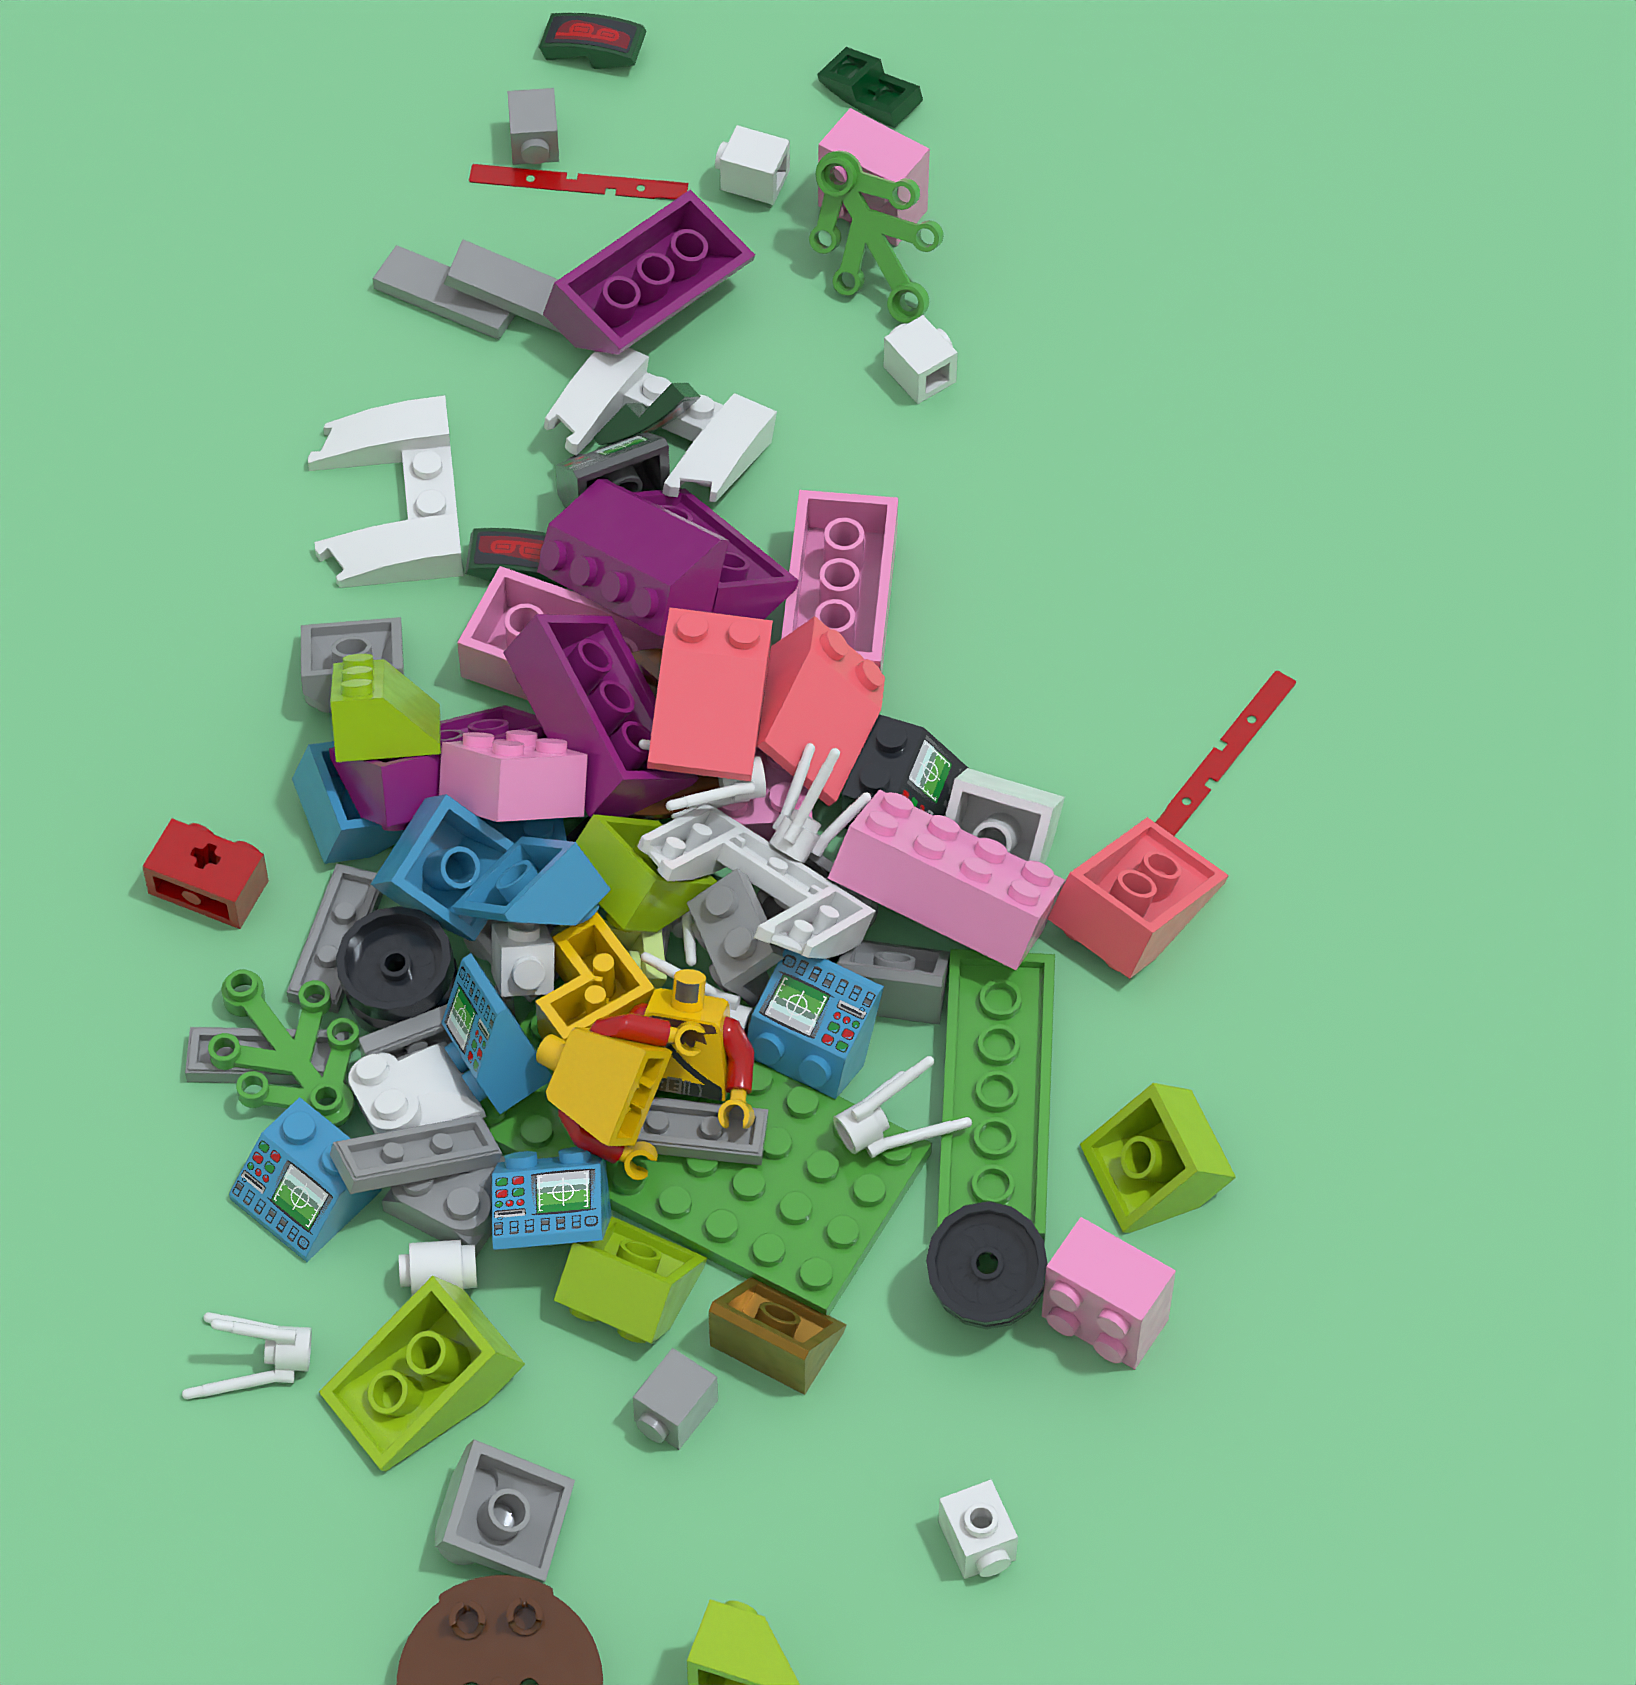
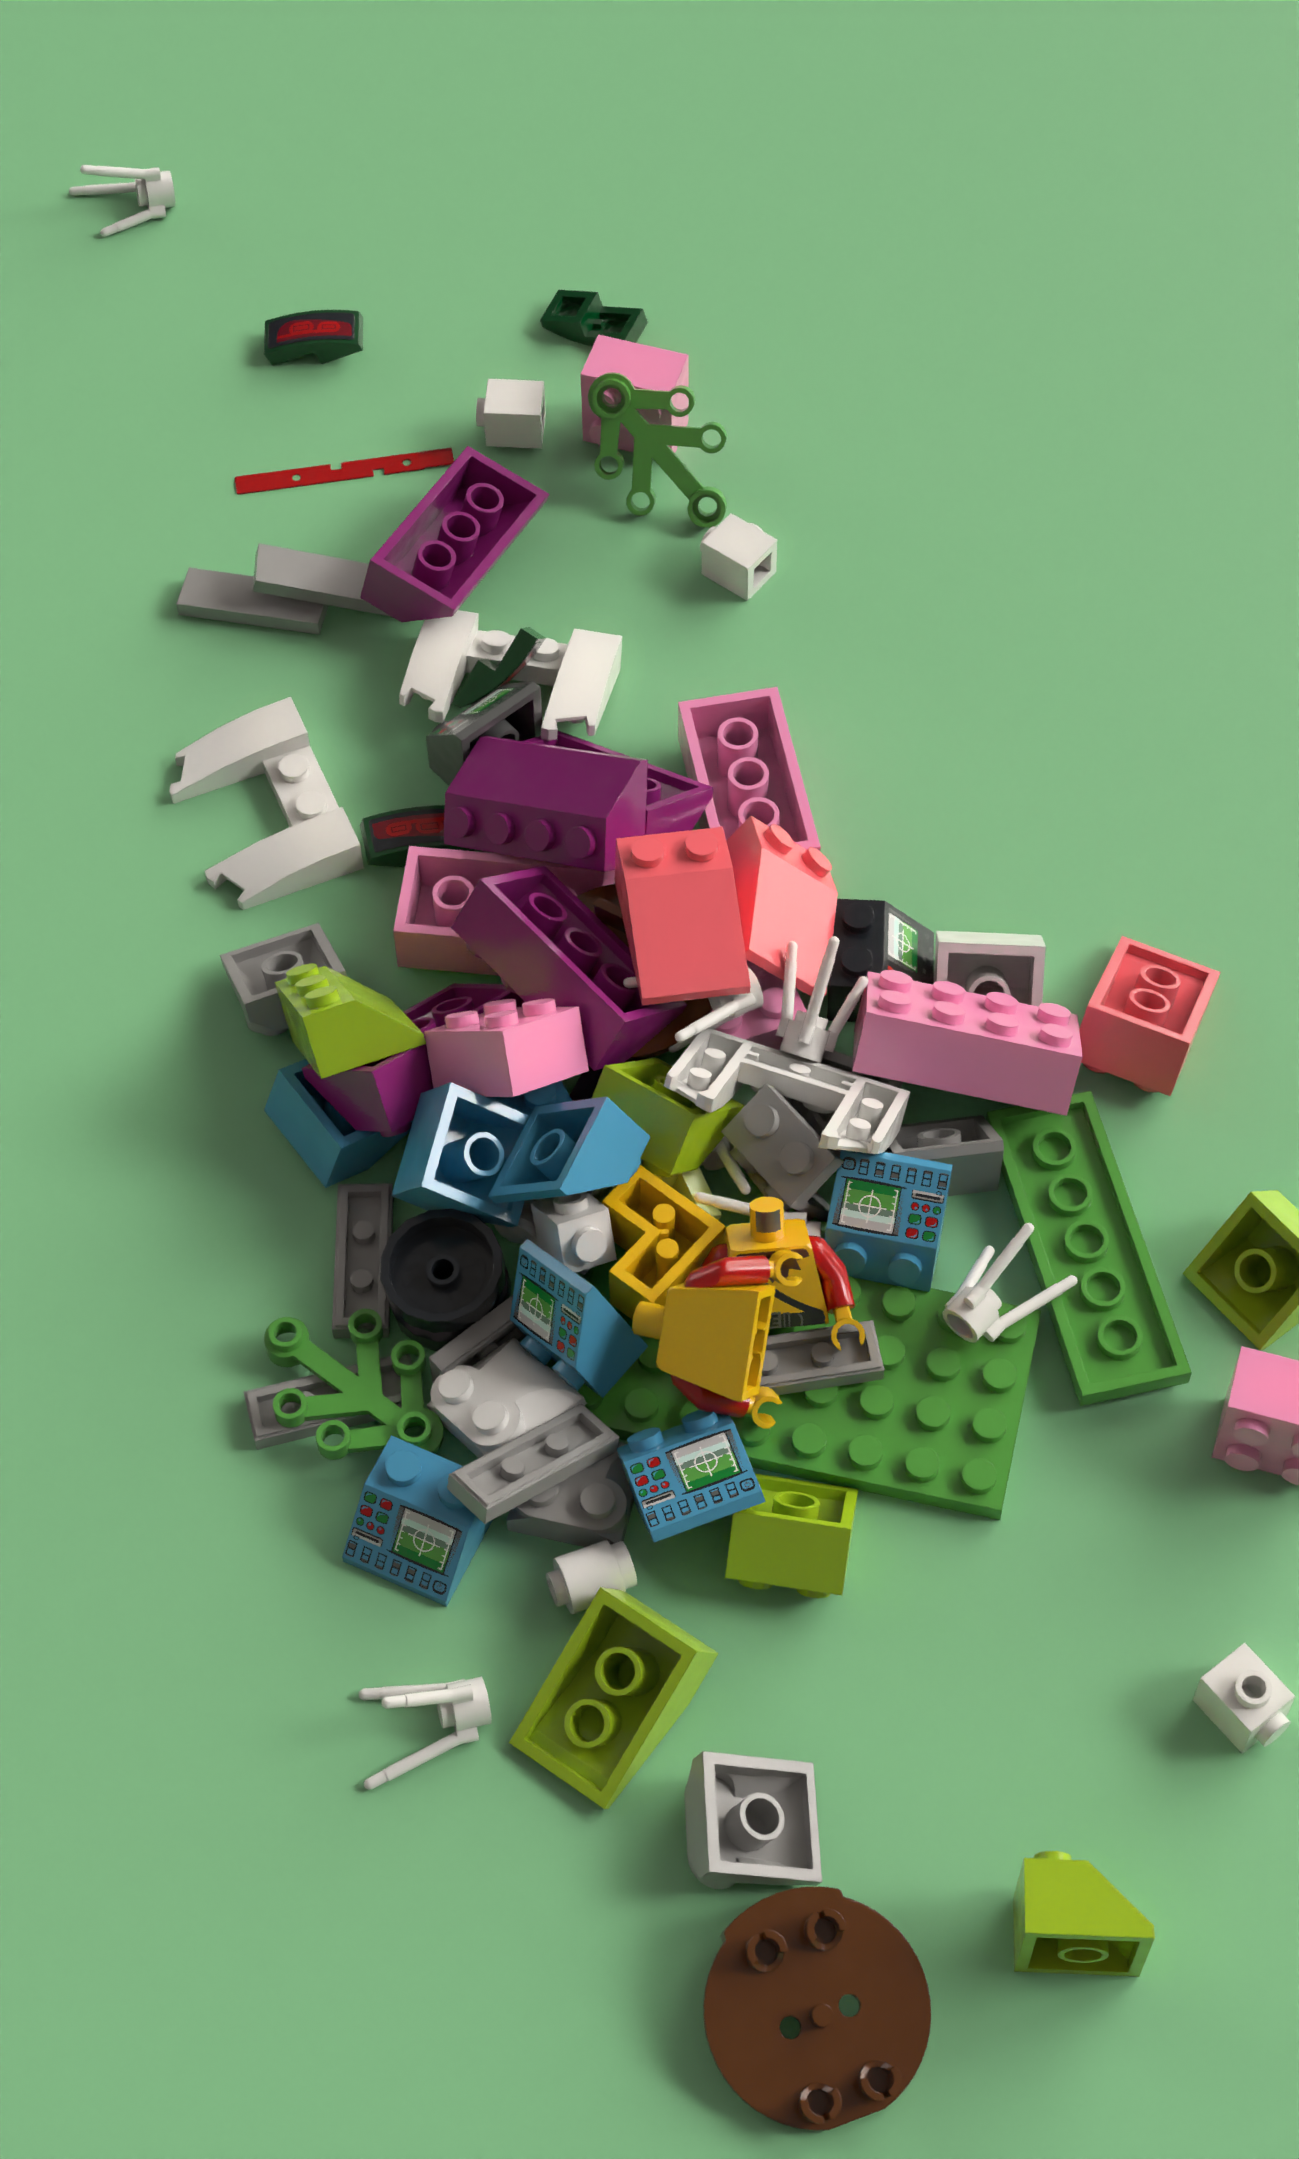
camera: 15 degrees left, 0 degrees up
(206, 872) = (207, 1228): red brick -> none
(533, 126) = (285, 426): light grey brick -> none
(674, 1399) = (885, 1648): light grey brick -> none
(773, 1333) = (958, 1550): pearl gold slope -> none
(995, 1297) = (1121, 1429): black wheel -> none
(1219, 761) = (1165, 867): red piece -> none

